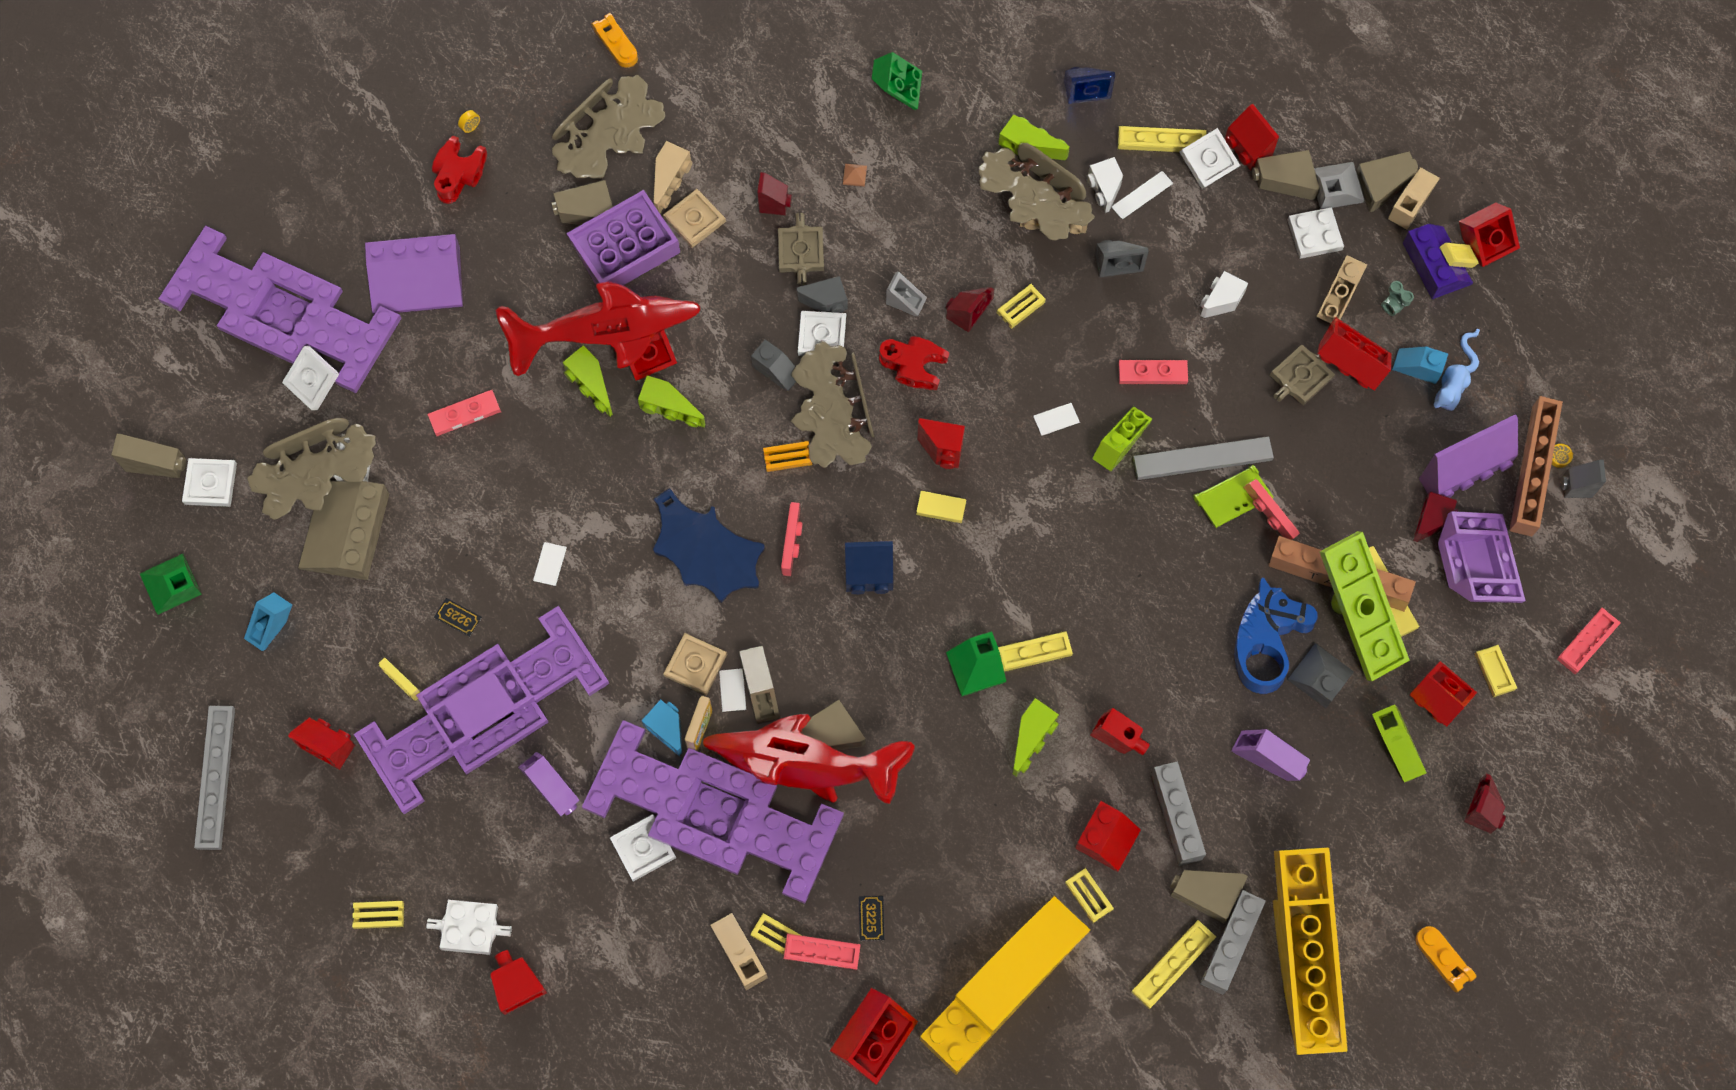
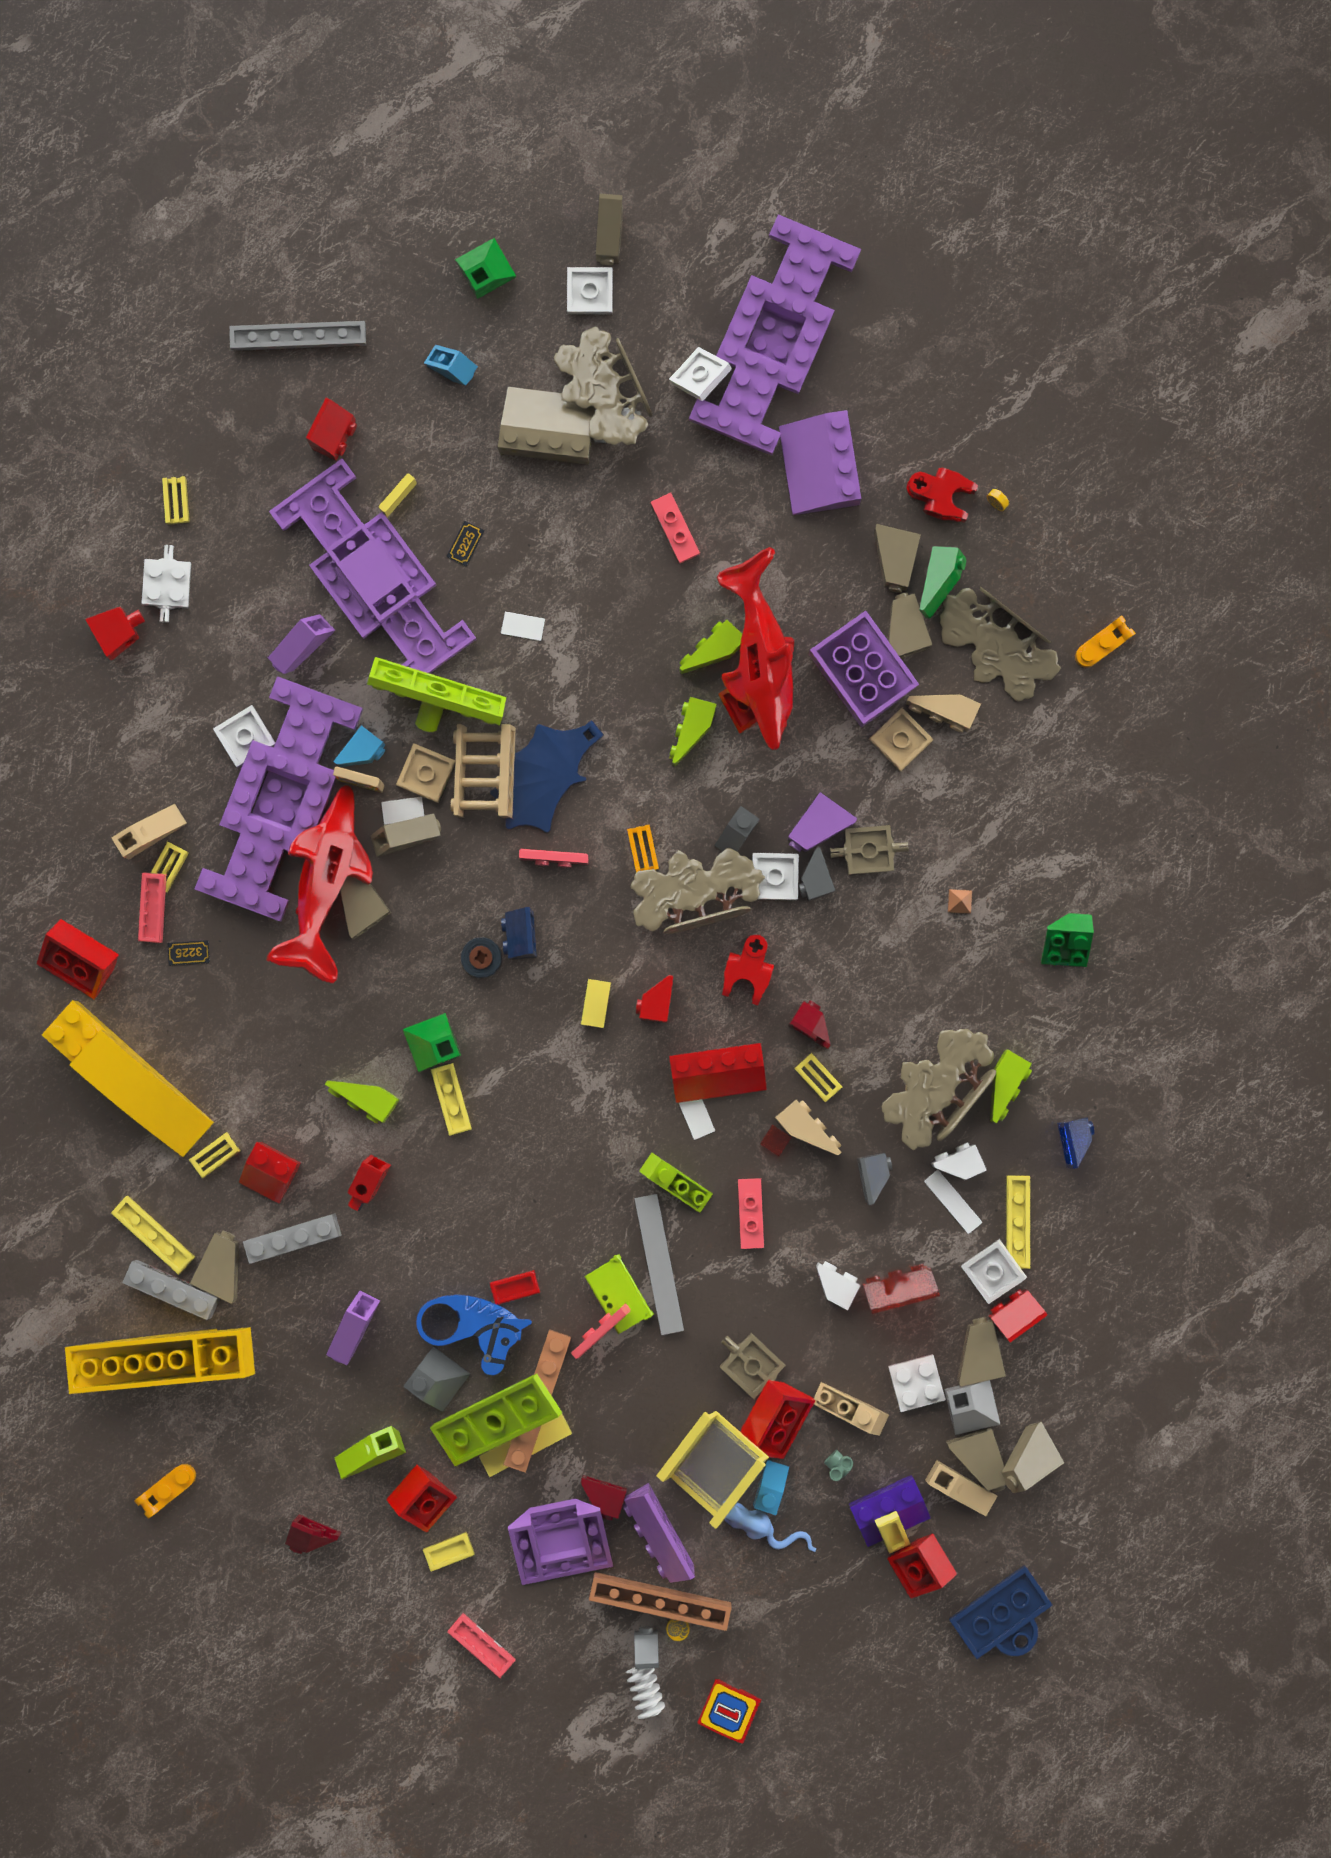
camera: 90 degrees right, 15 degrees up
(514, 211) = (896, 555): none -> dark tan slope
(536, 168) = (942, 575): none -> slope
(615, 642) = (435, 694): none -> lime plate
(711, 583) = (504, 760): none -> tan fence
(772, 291) = (819, 824): none -> medium lavender slope
(773, 195) = (924, 818): dark red slope -> none
(890, 623) = (488, 955): none -> black wheel
(904, 295) = (820, 959): light grey slope -> none
(1014, 393) = (718, 1073): none -> red slope
(1066, 321) = (802, 1126): none -> tan slope
(1081, 347) = (775, 1140): none -> clear red tile
(1227, 596) = (514, 1287): none -> red tile
(1228, 237) = (900, 1288): none -> clear red slope
(1385, 132) = (1031, 1459): none -> slope
(1405, 403) = (714, 1465): none -> clear piece
(1532, 168) = (1003, 1615): none -> dark blue plate
(1624, 483) = (647, 1692): none -> white piece
(1637, 411) = (729, 1711): none -> slope

